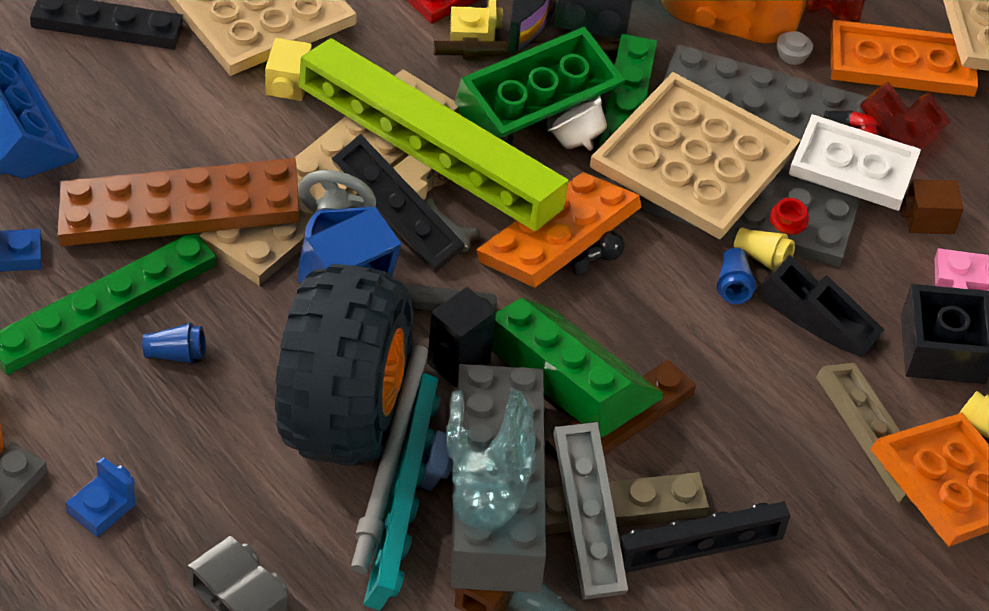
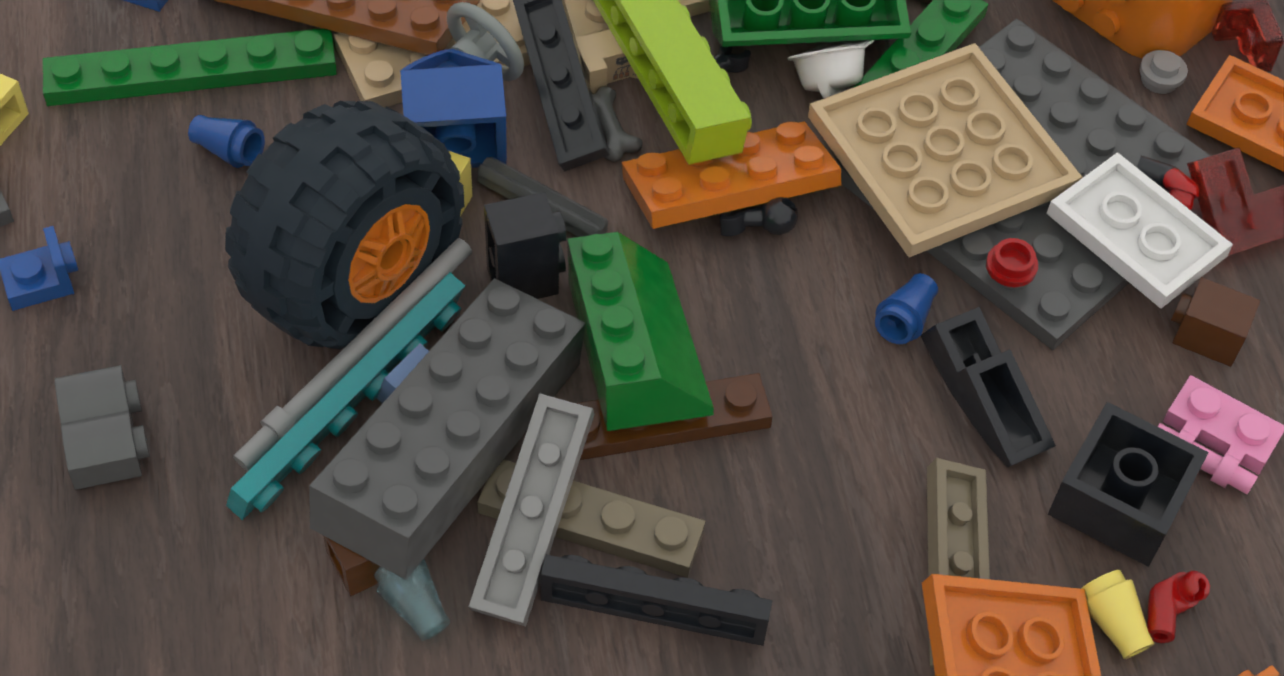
camera: 30 degrees right, 5 degrees up
(493, 481) = (415, 405): clear light blue hair -> none
(764, 246) = (968, 287): light yellow cone -> none

